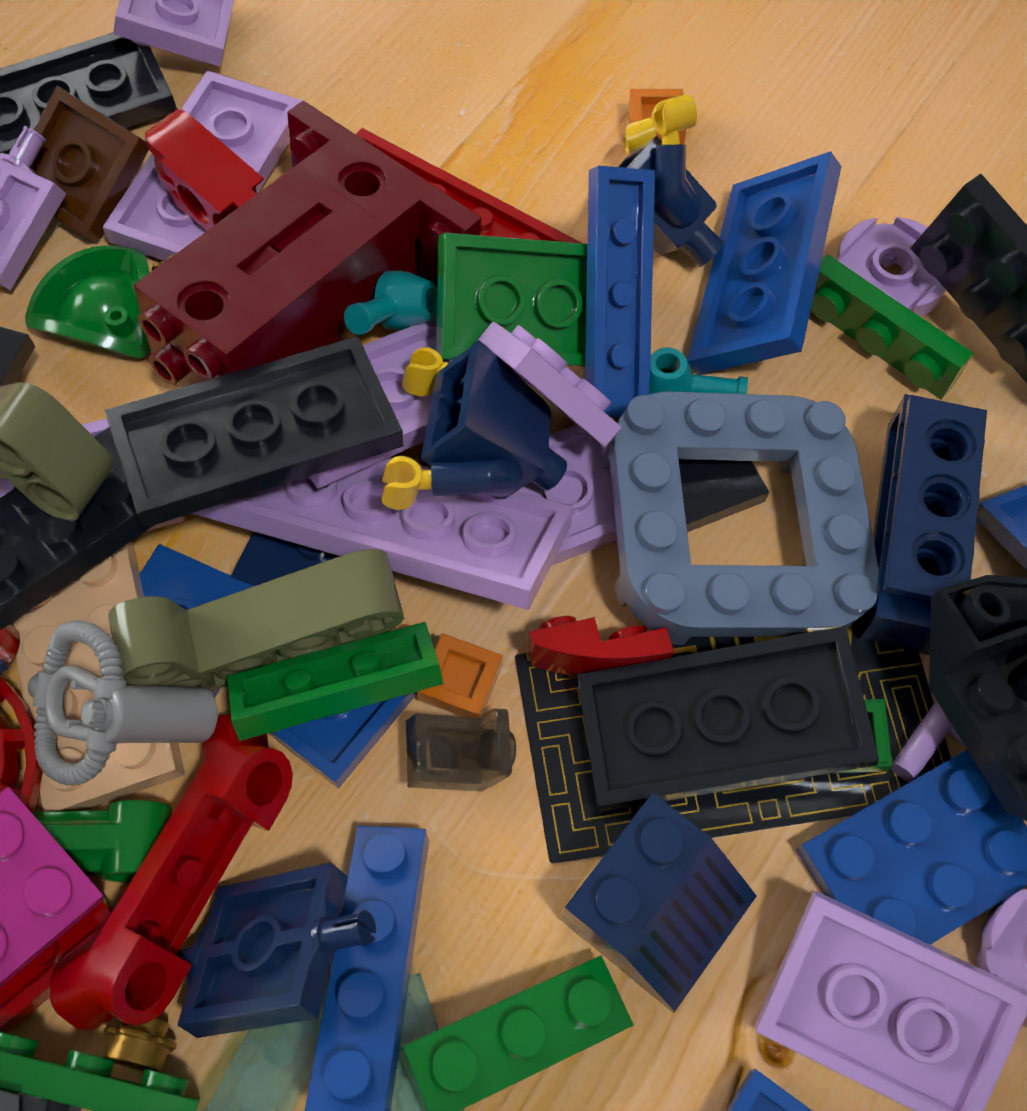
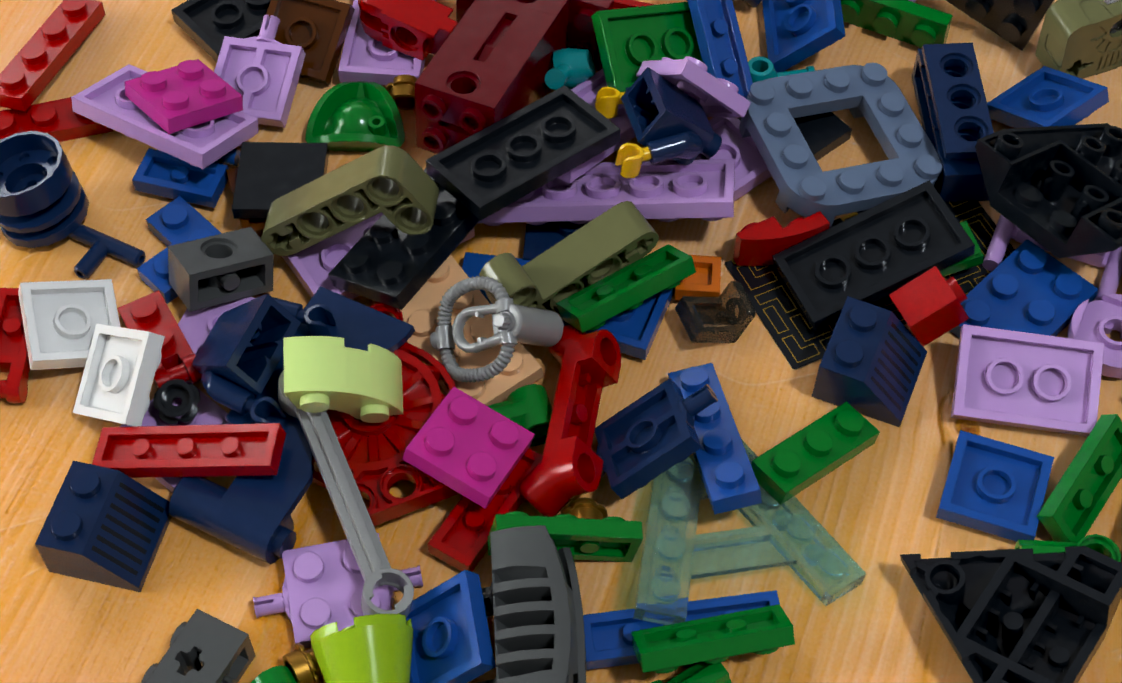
camera: 15 degrees left, 10 degrees down
(780, 833) = (930, 305): none -> red brick

